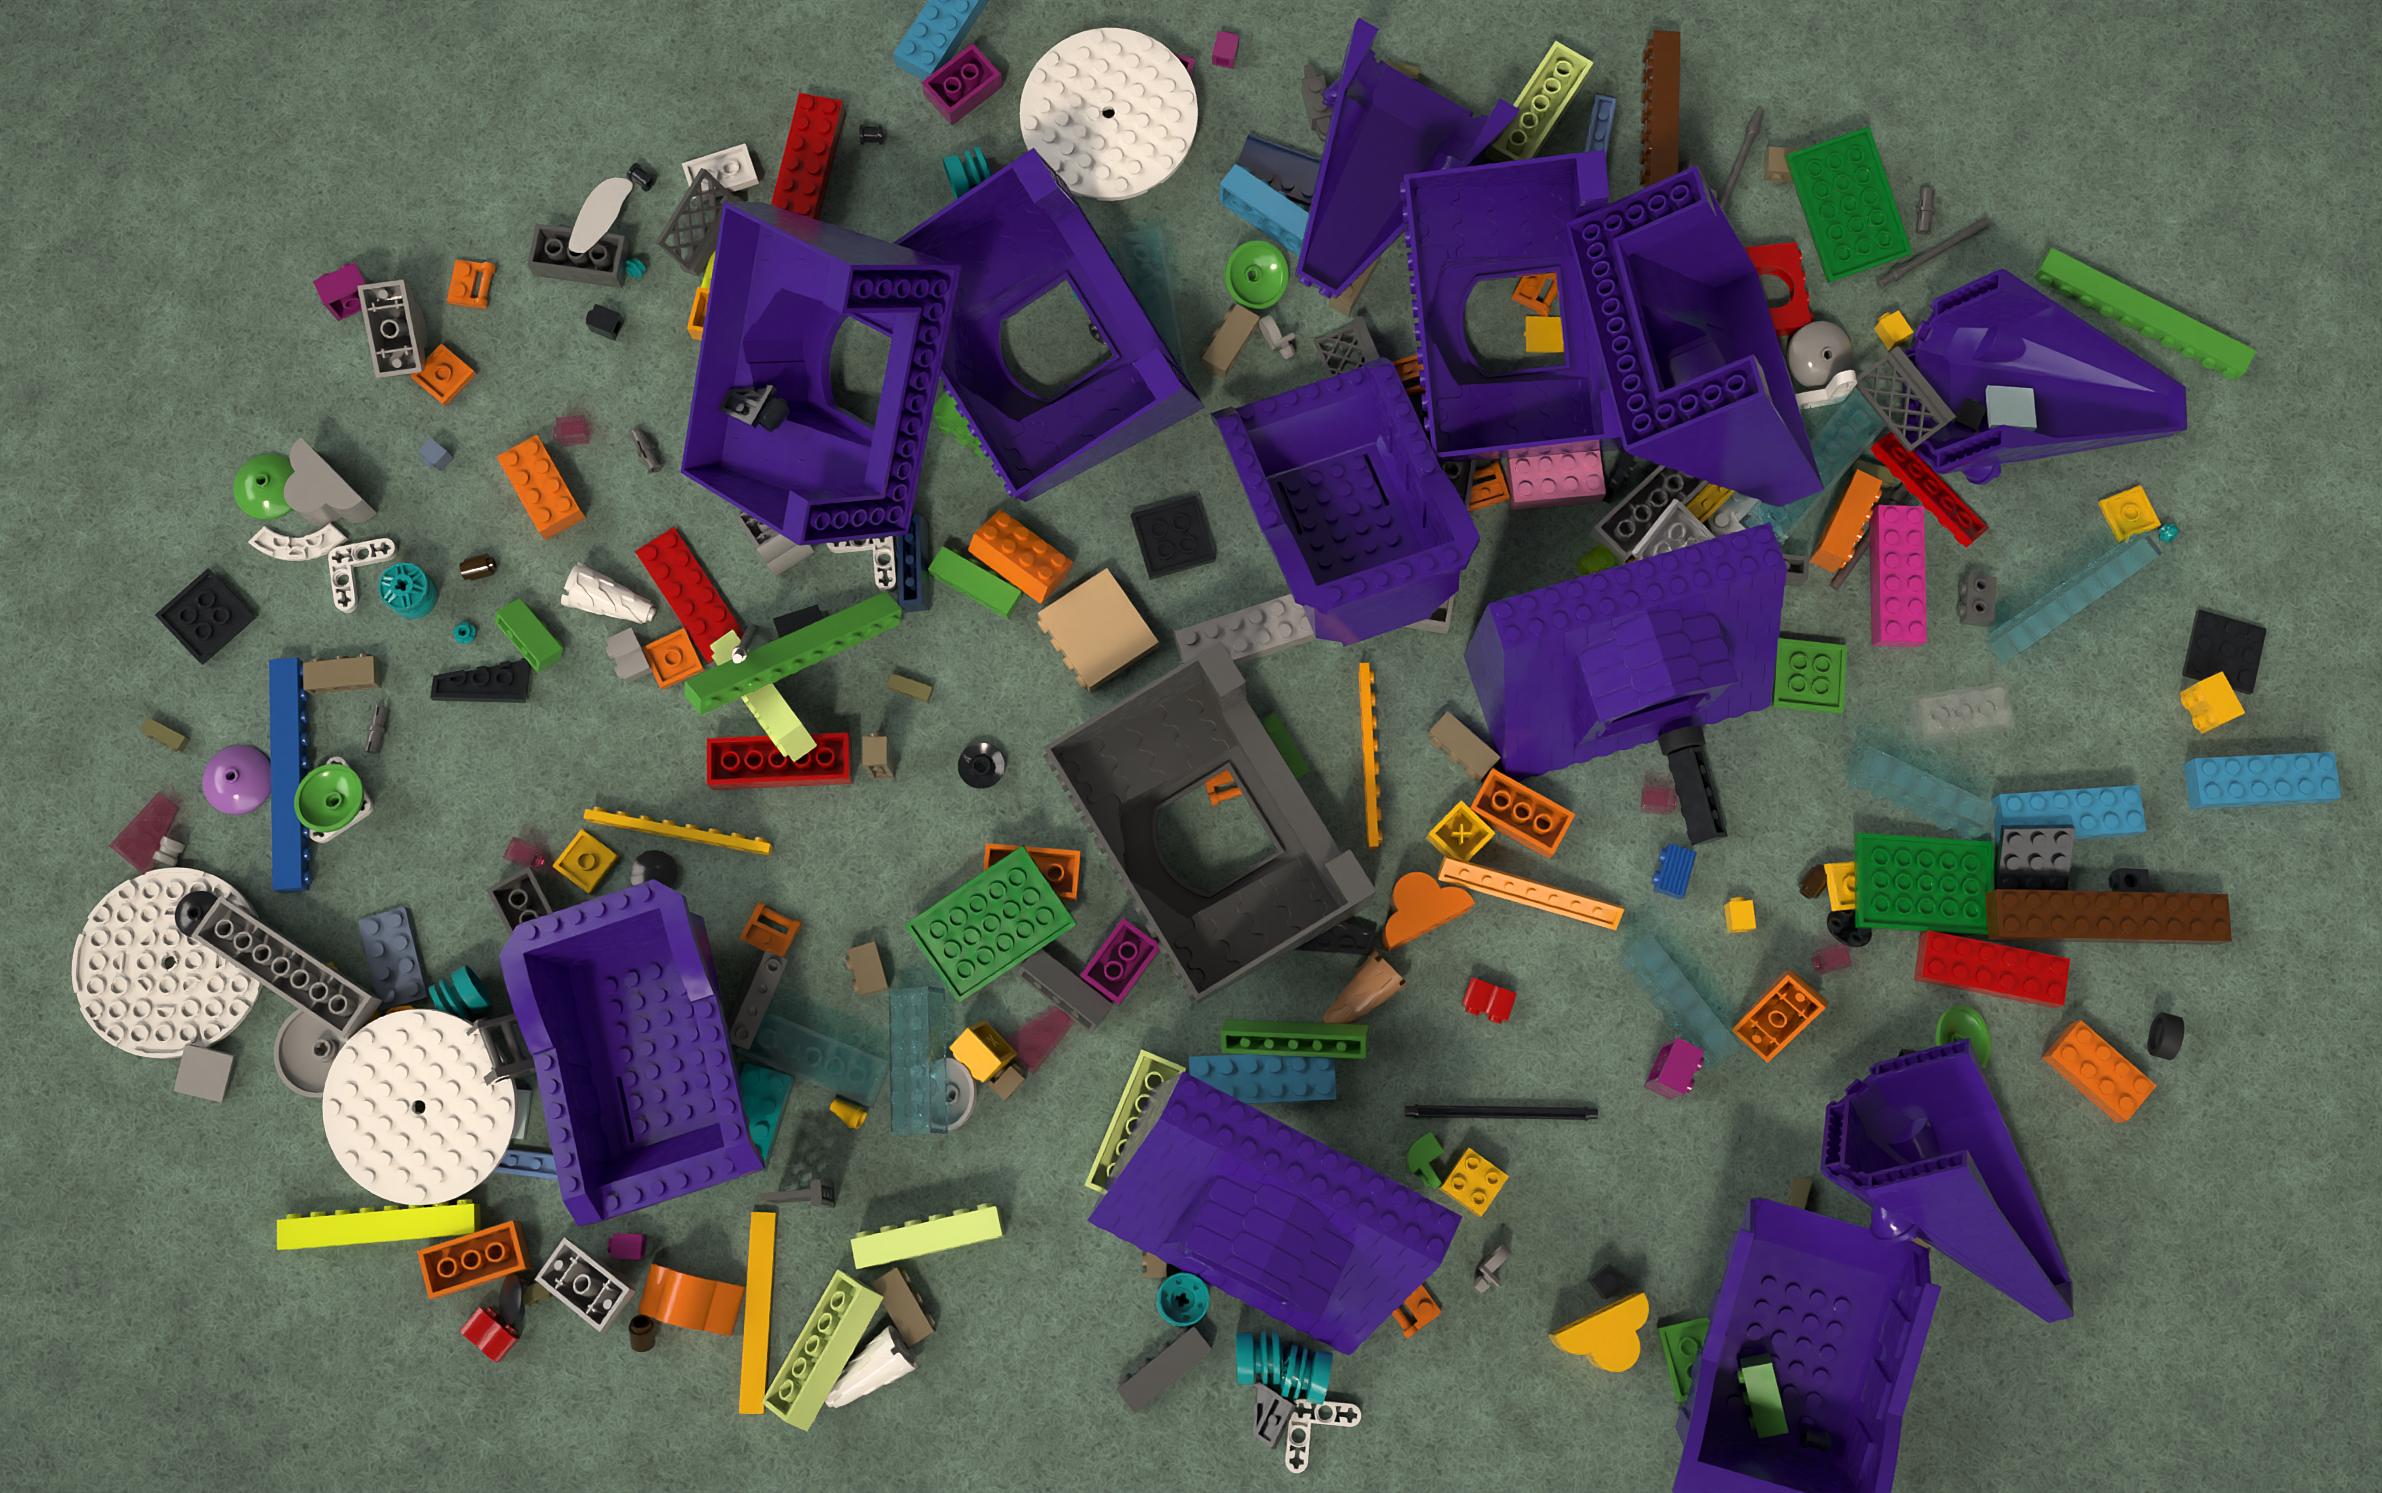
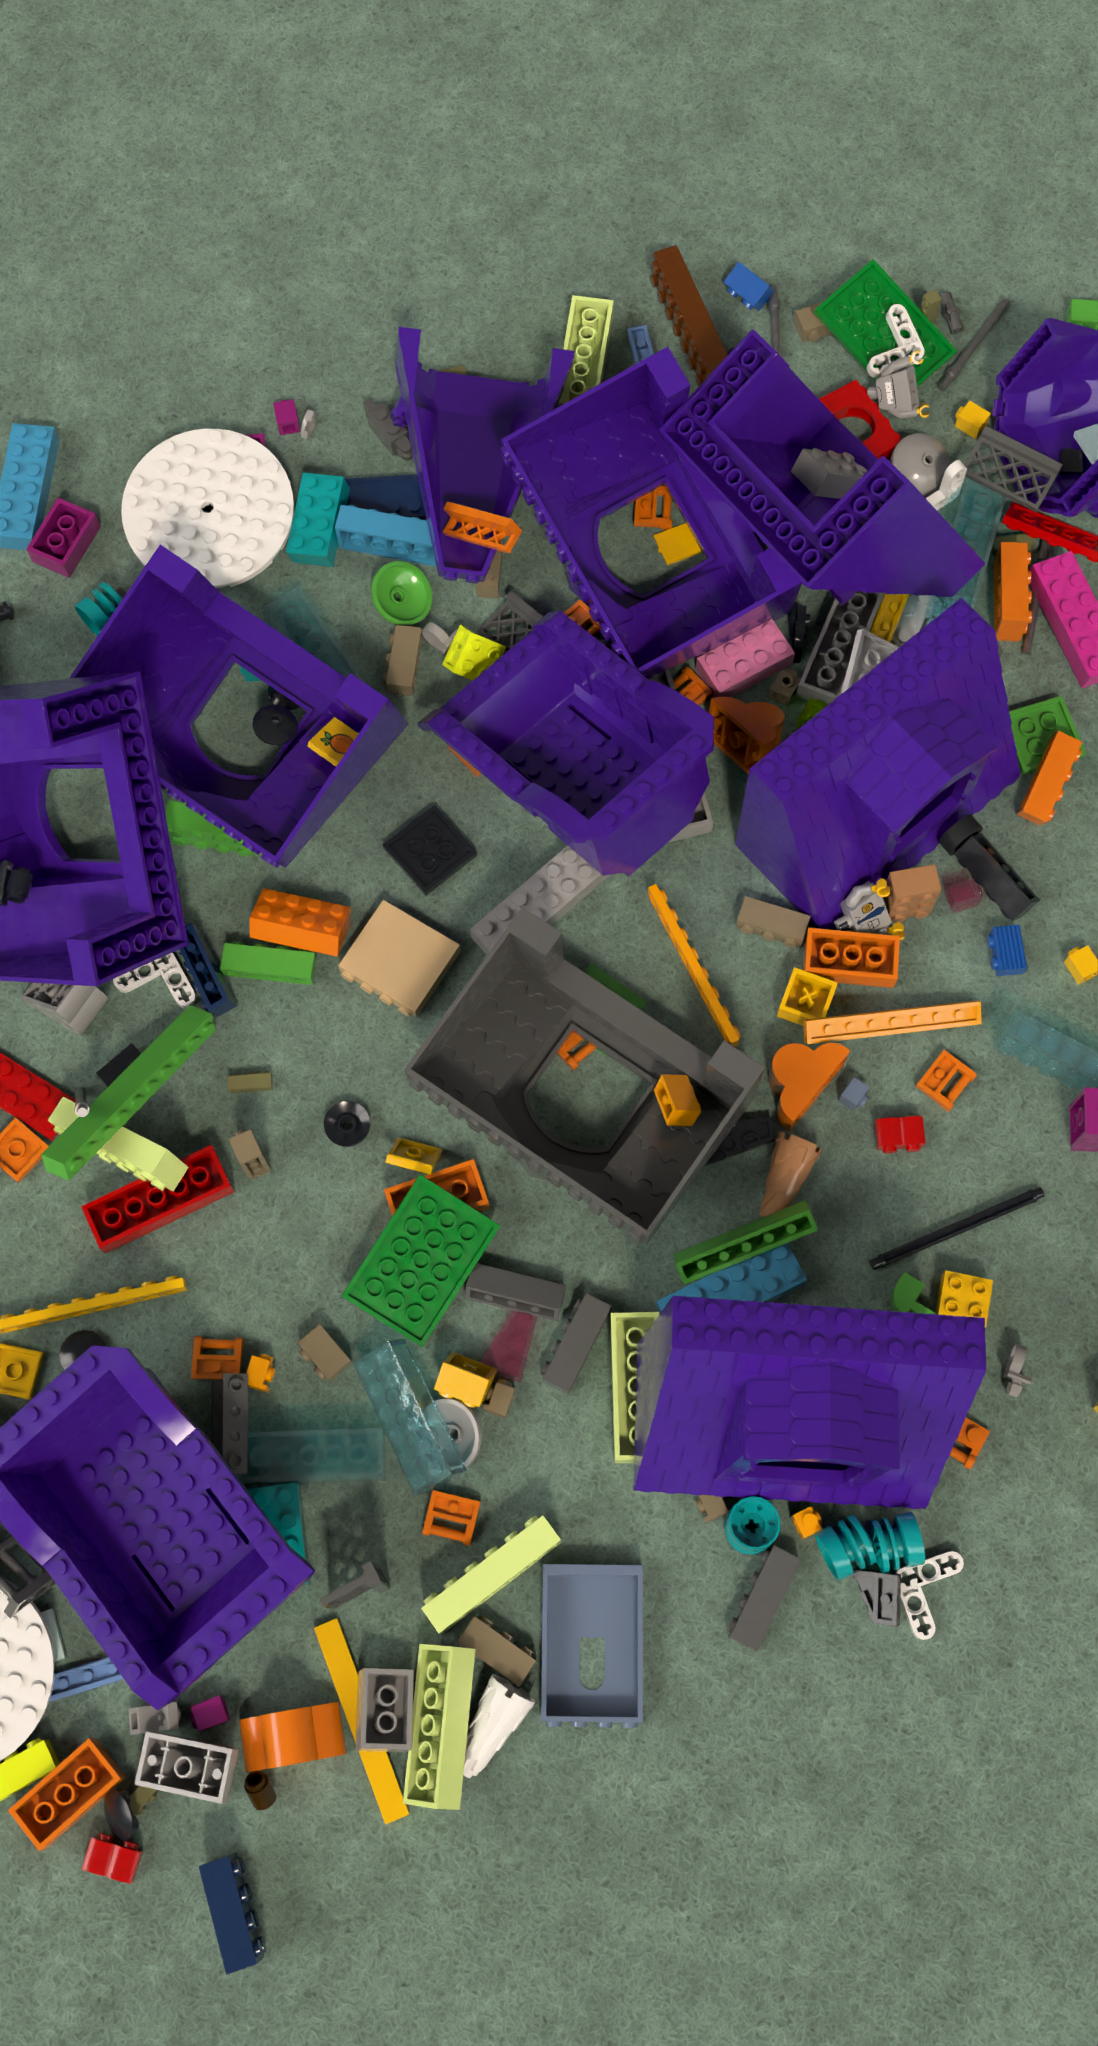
camera: 20 degrees left, 5 degrees down
(566, 1227) = (152, 1720): none -> light grey brick
(572, 1428) = (232, 1913): none -> dark blue brick
(780, 1313) = (384, 1710): none -> light grey brick
(803, 961) = (260, 1372): none -> light orange brick
(849, 1113) = (367, 1494): yellow cone -> none
(922, 1163) = (452, 1509): none -> orange plate
(1008, 1304) = (592, 1604): none -> sand blue panel
(1028, 823) = (414, 1155): none -> yellow tile
(1072, 366) = (272, 732): none -> black dish
(1099, 1062) = (576, 1343): none -> dark grey brick
(1120, 962) = (555, 1243): magenta brick -> none
(1124, 398) = (333, 741): none -> yellow tile
(1210, 159) = (314, 519): none -> teal brick
(1235, 1319) = (807, 1522): none -> light orange brick
(1243, 65) = (308, 424): none -> light grey tile
(1291, 879) = (677, 1100): none -> light orange brick
(1296, 364) = (471, 653): none -> neon yellow bracket
(1358, 241) = (485, 523): none -> orange fence
(1463, 945) = (855, 1094): none -> sand blue plate
(1522, 552) = (746, 730): none -> orange brick
(1553, 961) = (940, 1074): none -> orange plate
(1556, 777) = (866, 911): none -> light grey torso
(1577, 526) = (784, 693): none -> dark tan brick
(1604, 777) = (912, 893): none -> medium nougat brick
(1720, 331) = (827, 472): none -> light grey brick
(1734, 101) = (748, 286): none -> blue brick
(1795, 721) = (1049, 778): none -> orange brick
(1832, 270) = (898, 389): none -> light grey torso
(1860, 227) = (905, 345): none -> white beam
(1905, 197) = (930, 305): none -> olive piece

